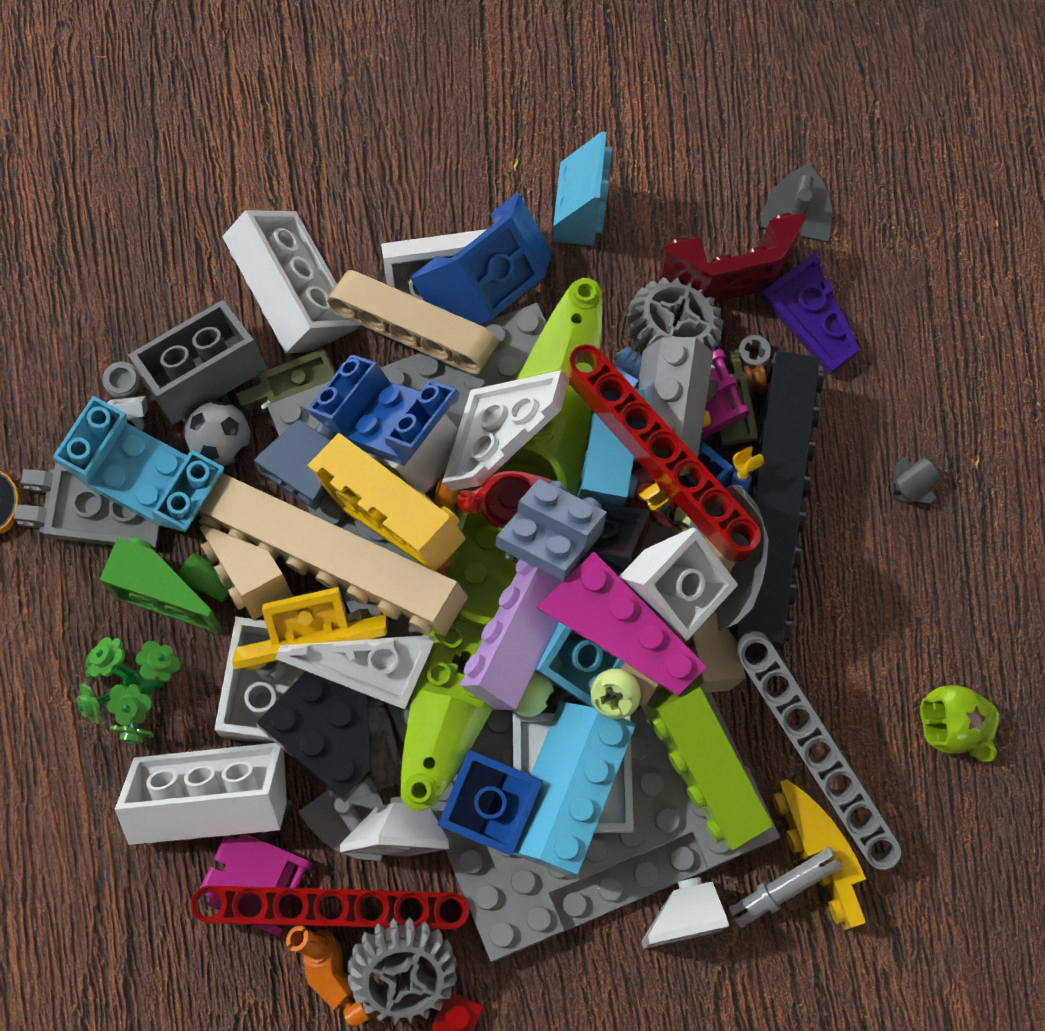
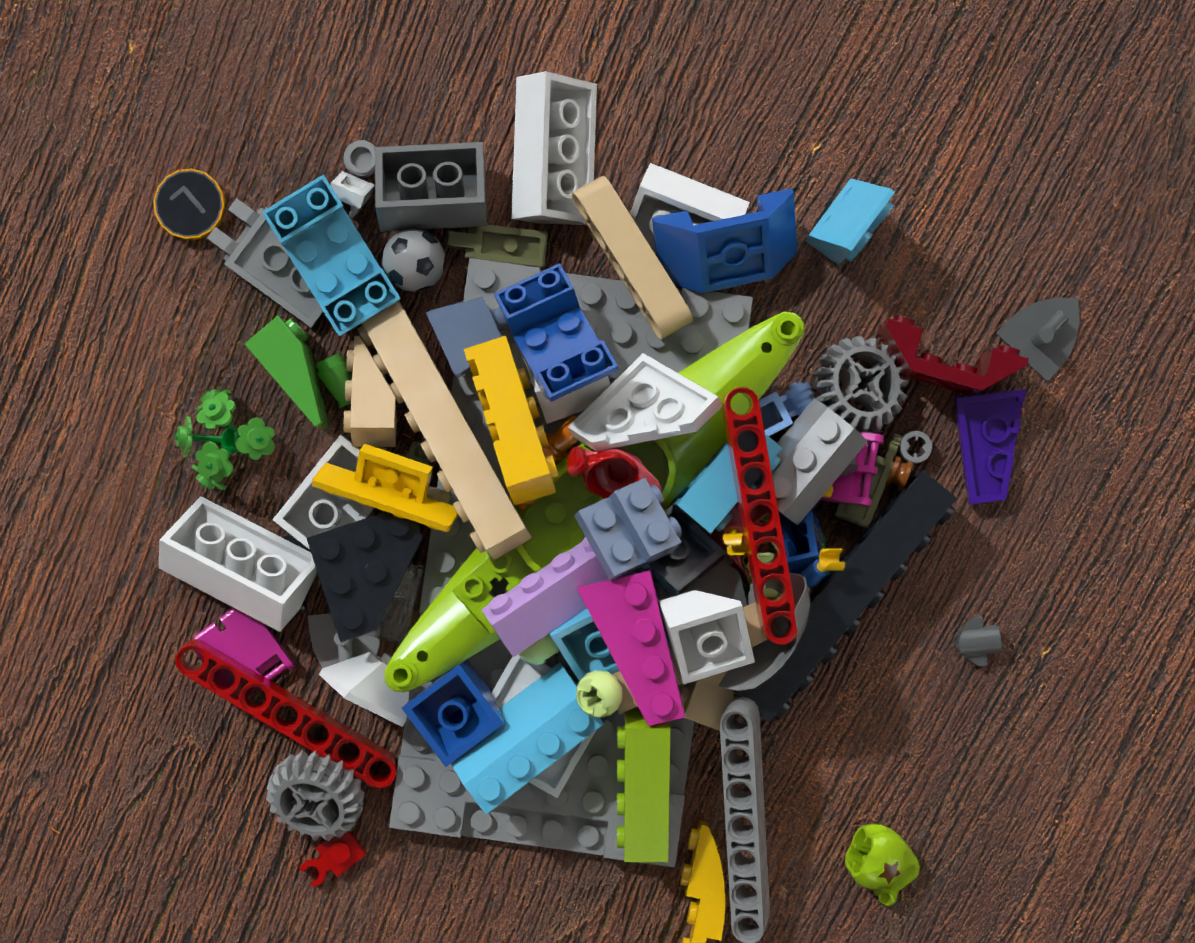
camera: 35 degrees right, 15 degrees up
(326, 971) = (258, 757): orange arm -> none
(372, 666) = (423, 551): white wing -> none
(687, 914) = (561, 883): white slope -> none
(771, 895) = (642, 907): light grey pin -> none

